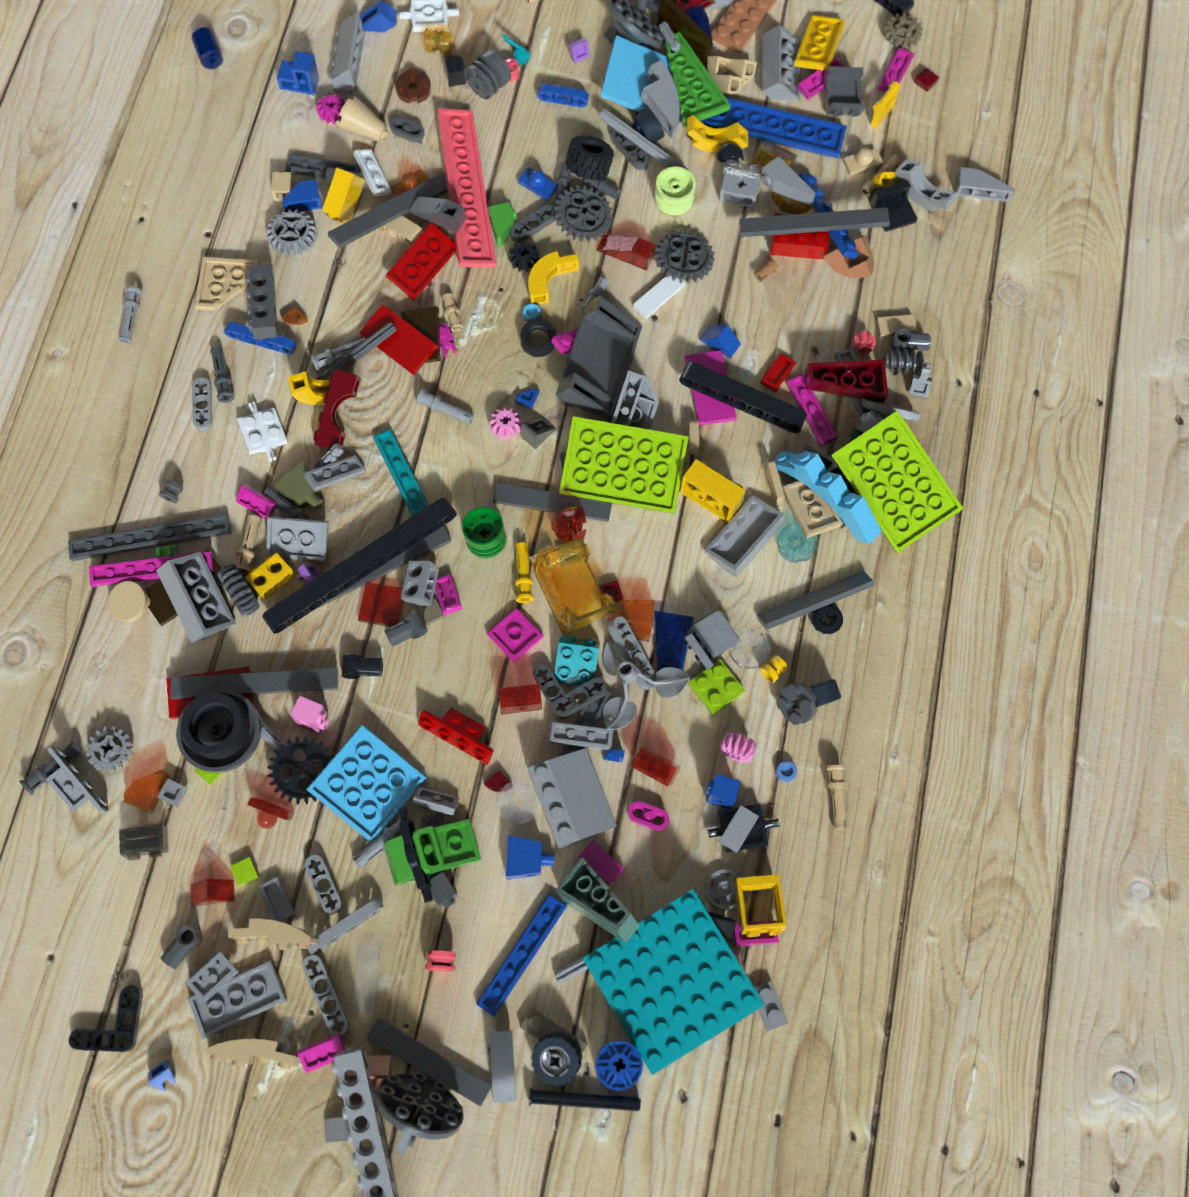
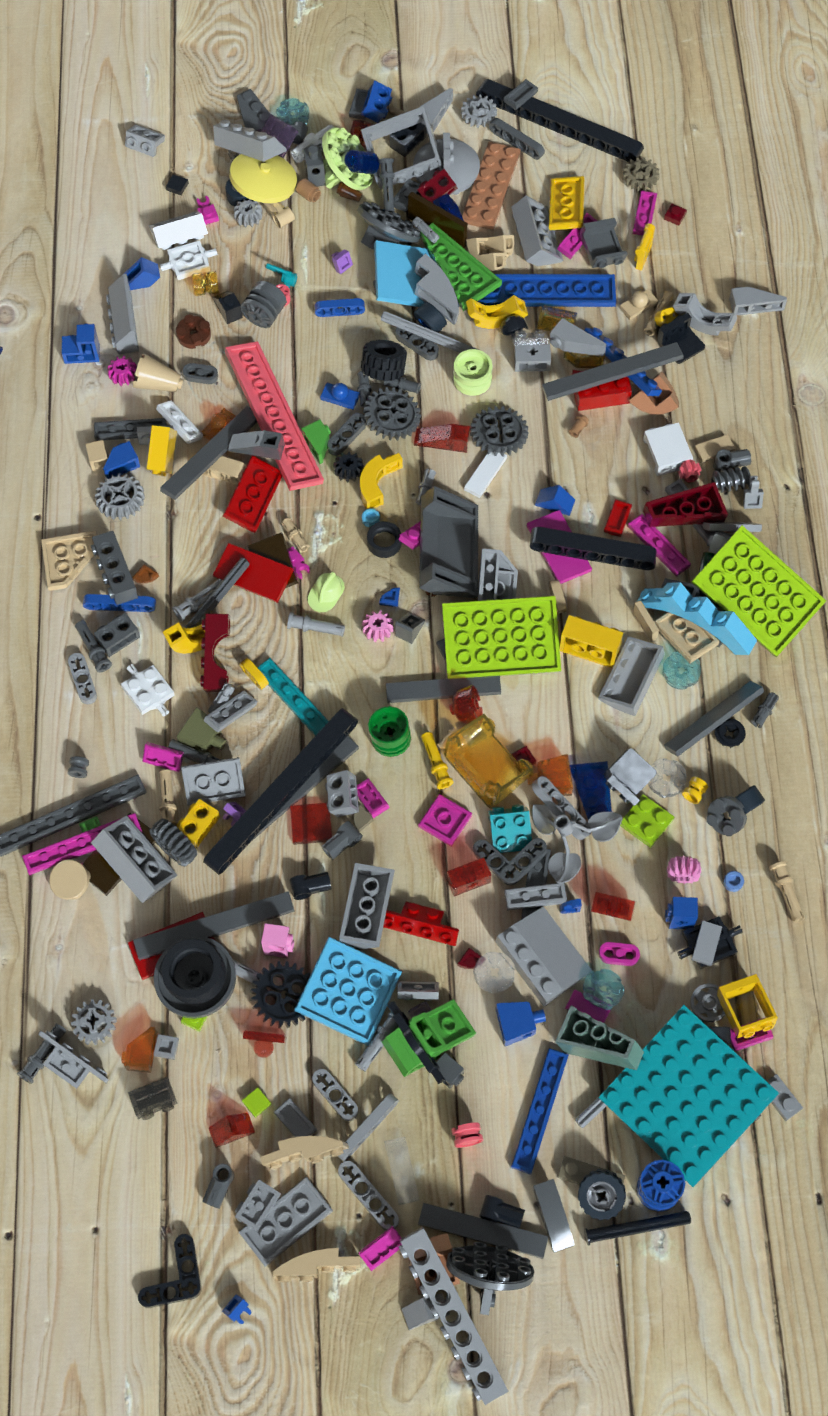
camera: 10 degrees left, 5 degrees down
(249, 373) = (119, 638): none -> dark grey brick
(369, 441) = (254, 673): none -> yellow beam
(408, 703) = (366, 906): none -> light grey slope
(450, 1047) = (498, 1211): none -> black piece
(465, 376) = (325, 592): none -> yellowish green piece
(620, 859) = (600, 998): none -> clear light blue plate
(848, 313) = (667, 448): none -> white panel
(869, 604) = (765, 710): none -> dark grey axle

